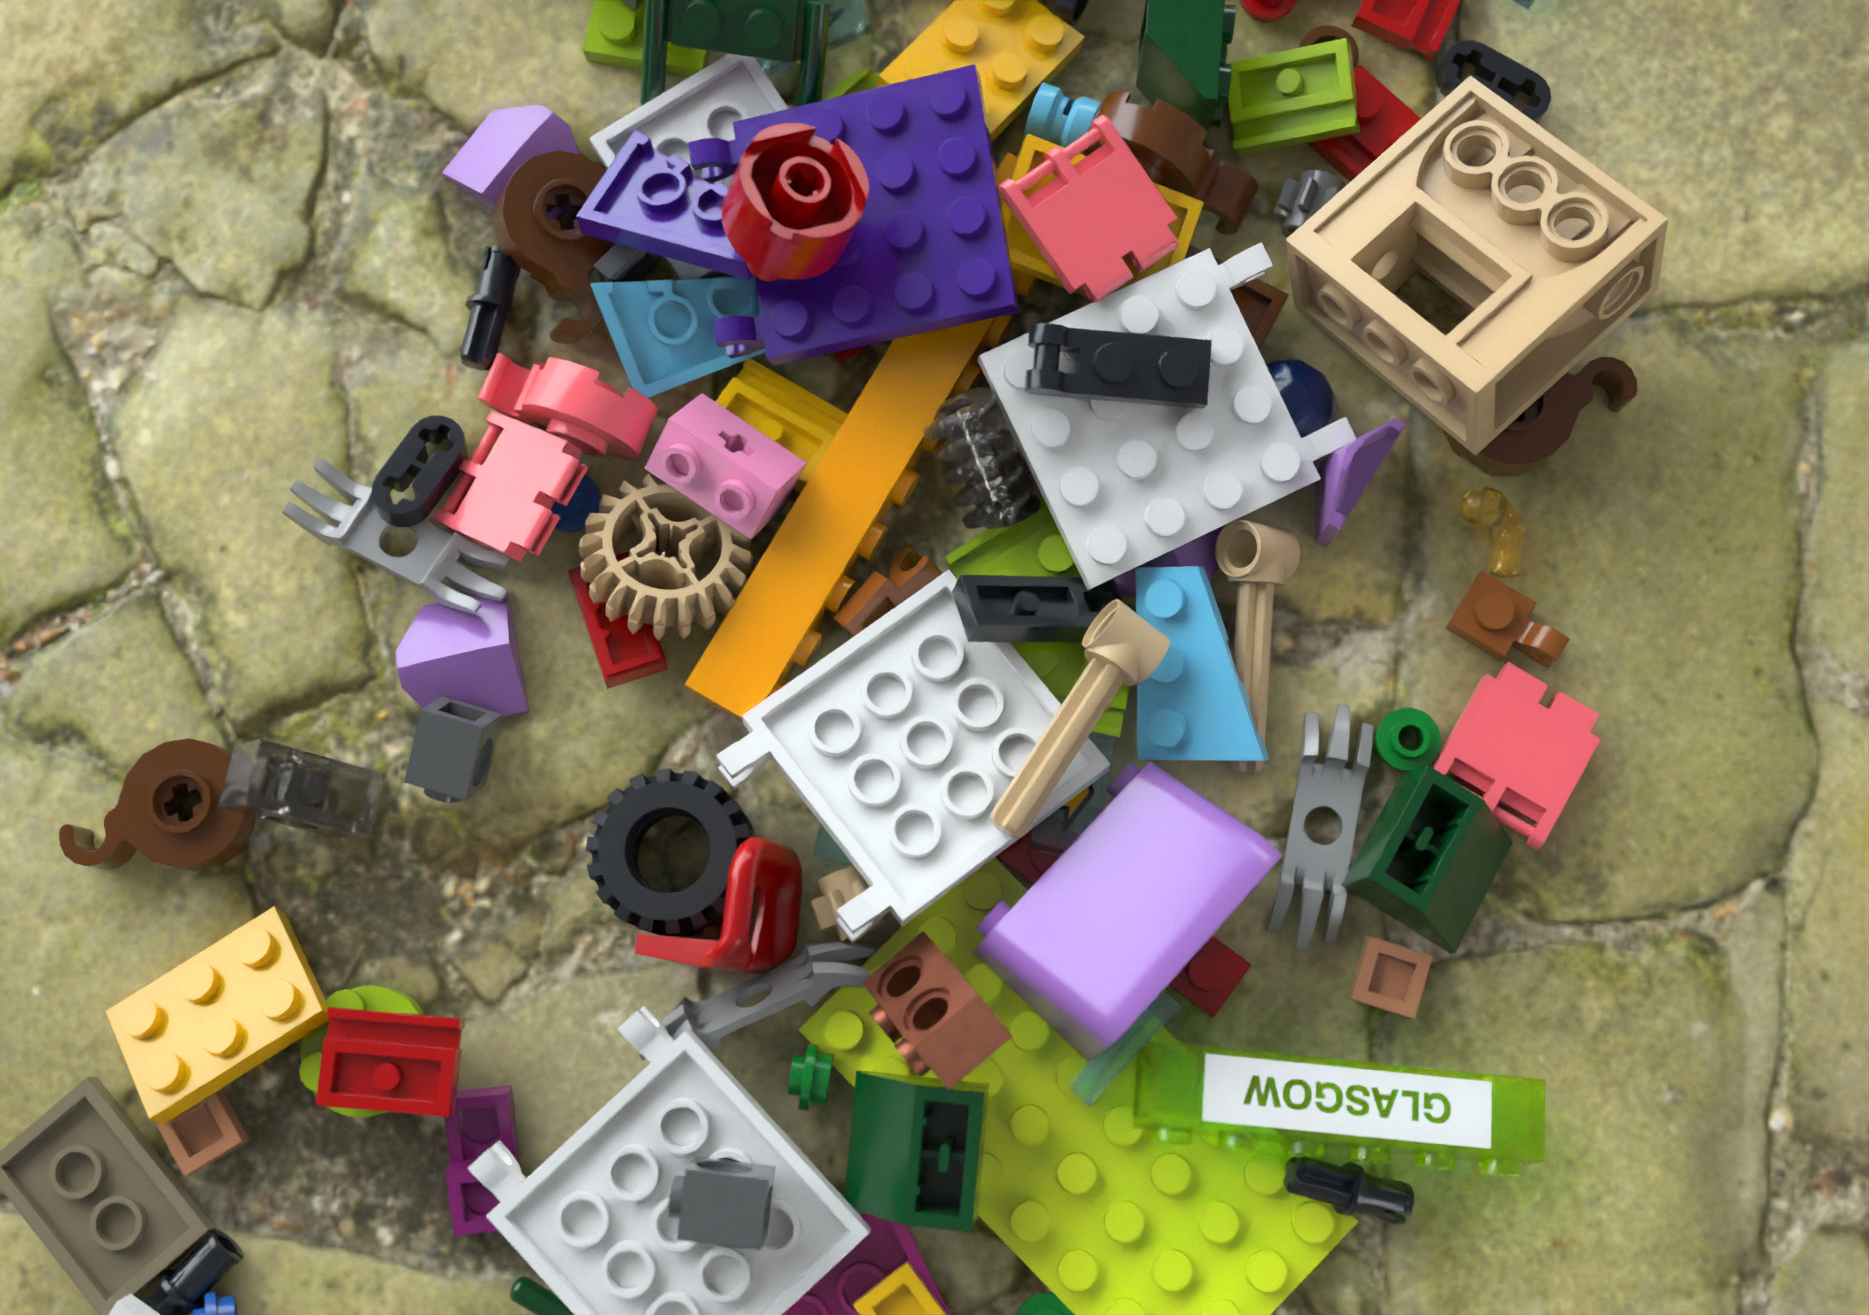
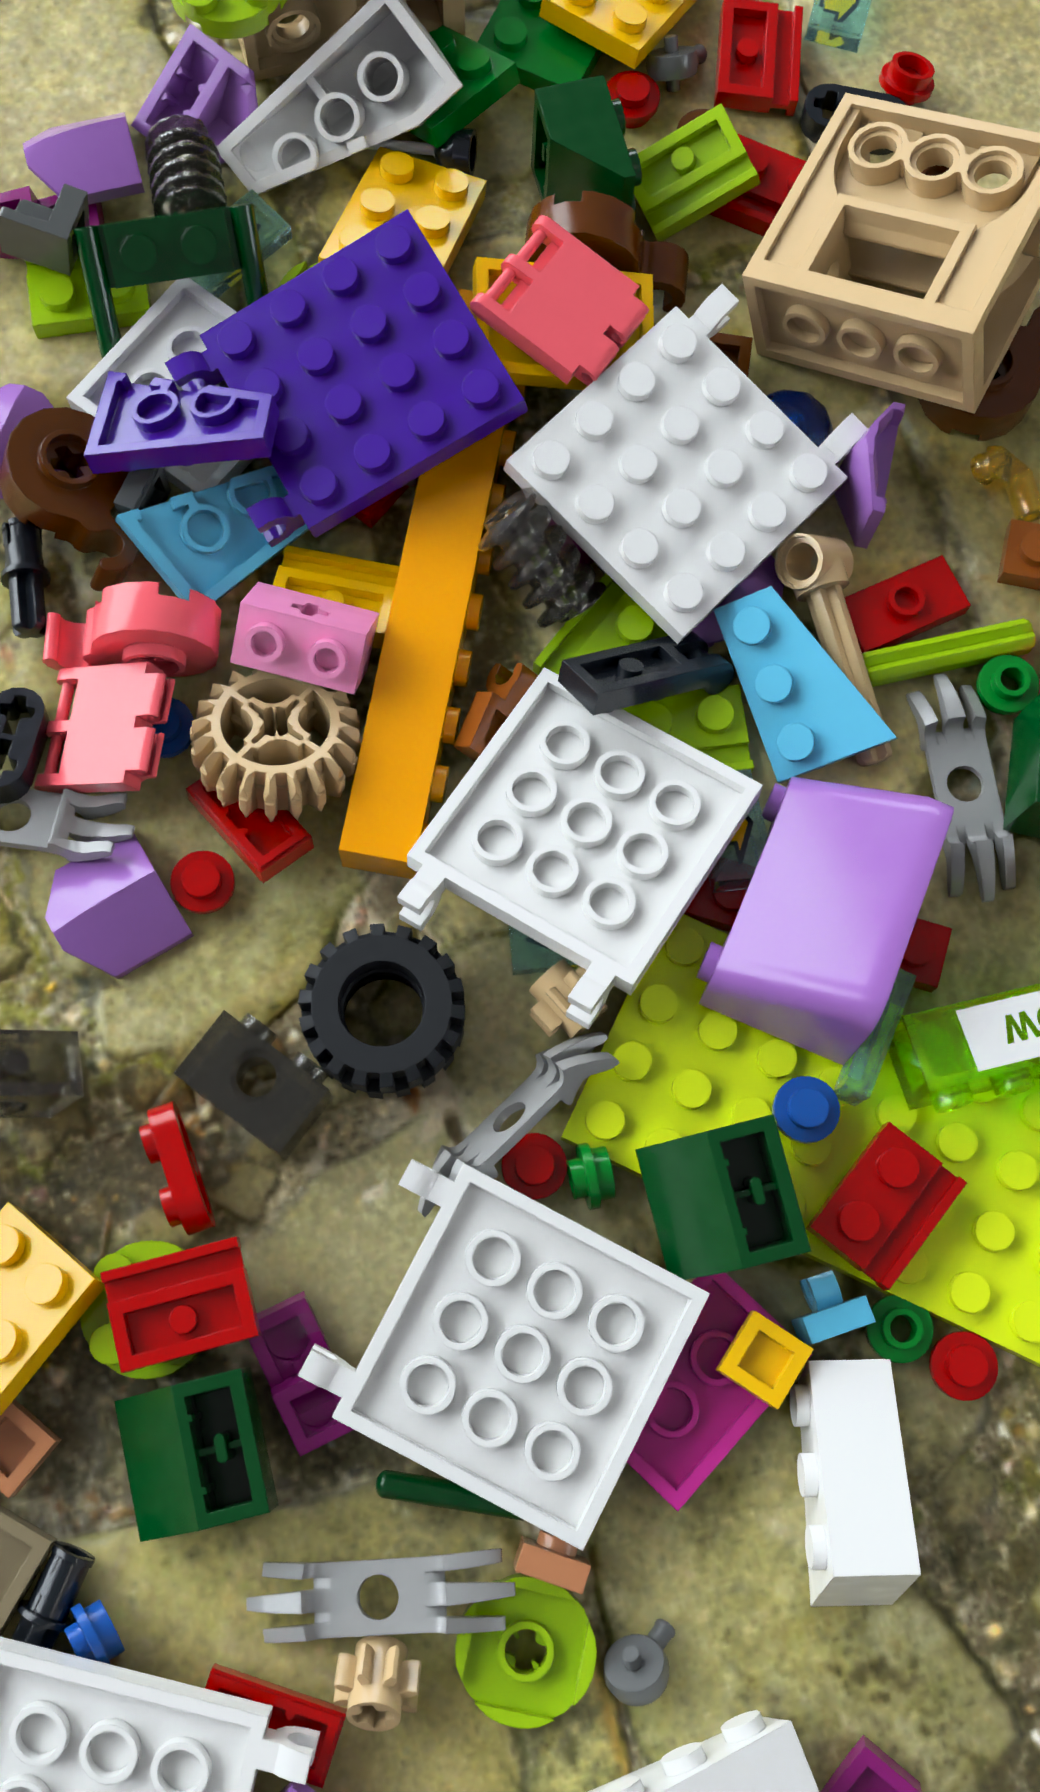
camera: 30 degrees left, 5 degrees down
(362, 1201) = (196, 1455): none -> dark green slope
(434, 959) = (186, 1196): none -> red plate
(452, 749) = (134, 989): dark grey brick -> none
(500, 858) = (217, 1074): none -> clear smoke brick
(553, 666) = (202, 882): none -> red plate
(723, 1202) = (565, 1311): dark grey brick -> none
(763, 1049) = (535, 1166): none -> red plate
(779, 883) = (493, 1047): red piece -> none
(794, 202) = (291, 366): red brick -> none
(935, 1011) = (694, 1059): copper brick -> none
(985, 1291) = (829, 1312): none -> medium azure tile
(1032, 1092) = (806, 1109): none -> blue plate
(1059, 117) = (489, 244): medium azure wheel -> none
(1074, 1210) = (886, 1206): none -> red plate
(1119, 652) = (732, 681): tan axle -> none
(1120, 366) = (638, 426): black plate -> none
(1305, 198) = (734, 253): dark grey gear -> none
(1335, 623) = (906, 605): none -> red plate
(1361, 685) = (949, 651): none -> lime axle
(1565, 60) = (908, 77): none -> red plate

